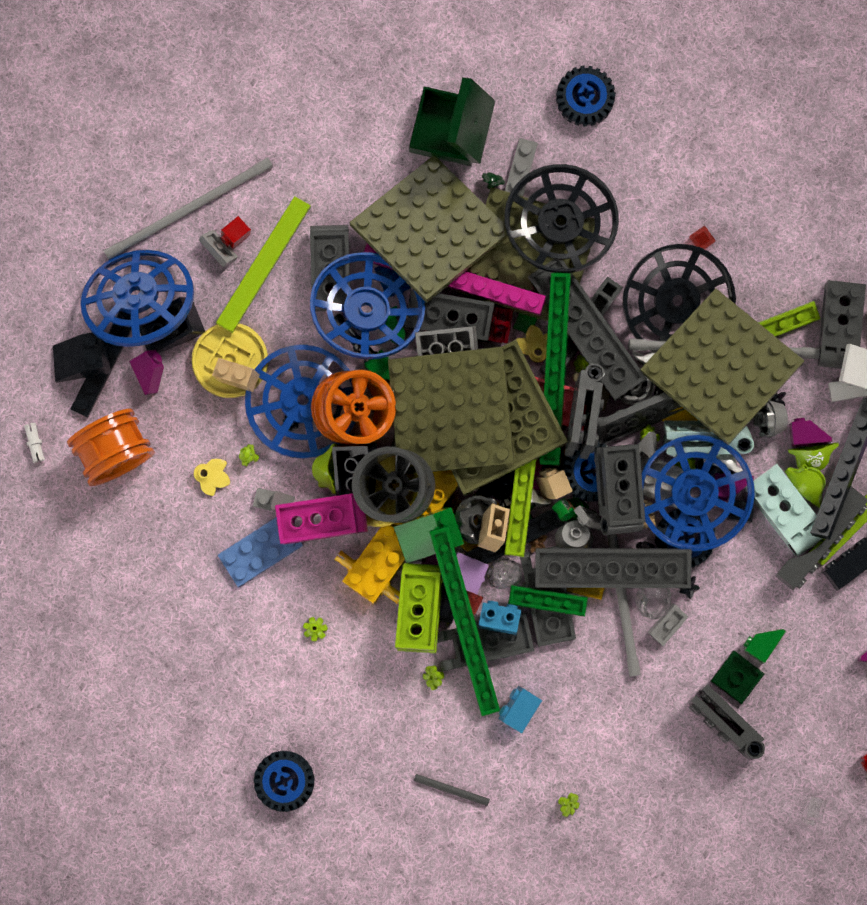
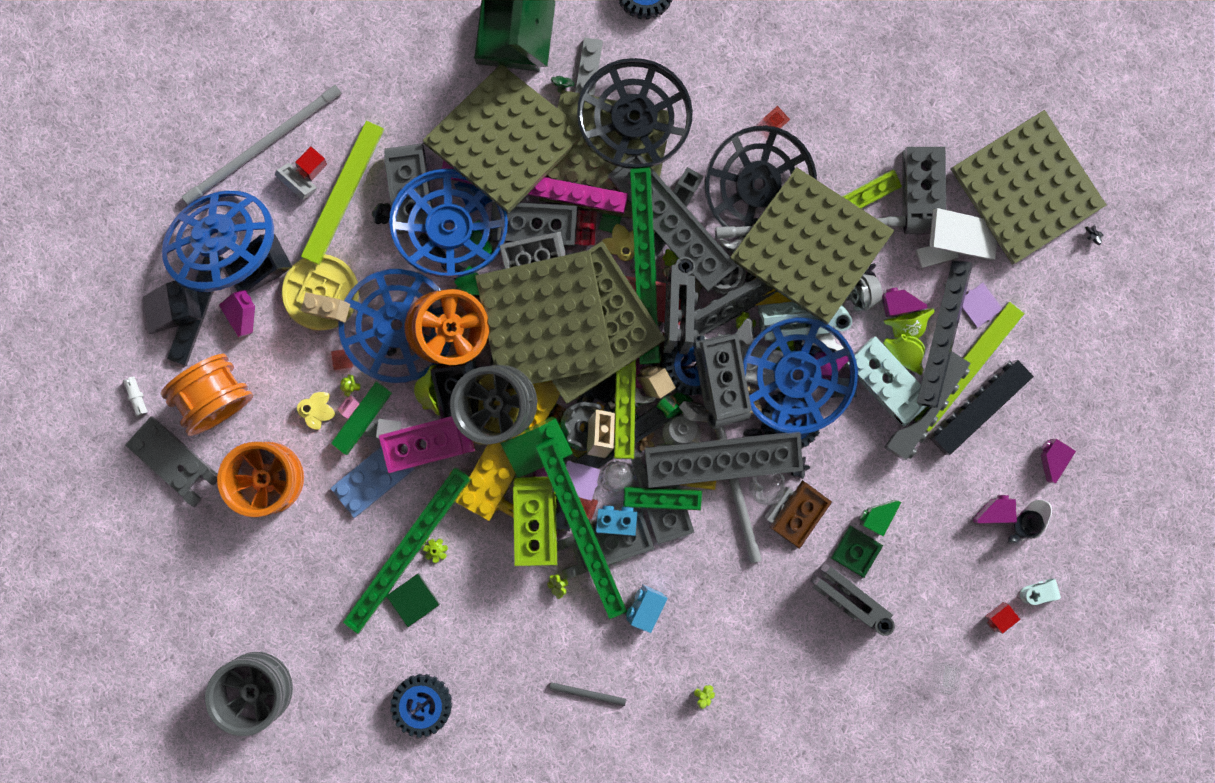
camera: 10 degrees left, 5 degrees up
(58, 502) = (164, 454): none -> dark grey hinge
(93, 729) = (227, 714): none -> dark grey wheel
(144, 510) = (231, 483): none -> orange wheel
(242, 429) = (340, 360): none -> clear red tile
(245, 475) = (348, 406): none -> bright pink tile
(257, 488) = (361, 418): none -> green tile
(287, 624) = (407, 550): none -> green plate
(287, 675) = (413, 600): none -> dark green tile
(300, 289) = (381, 213): none -> black plant
(684, 633) = (800, 514): none -> reddish brown tile

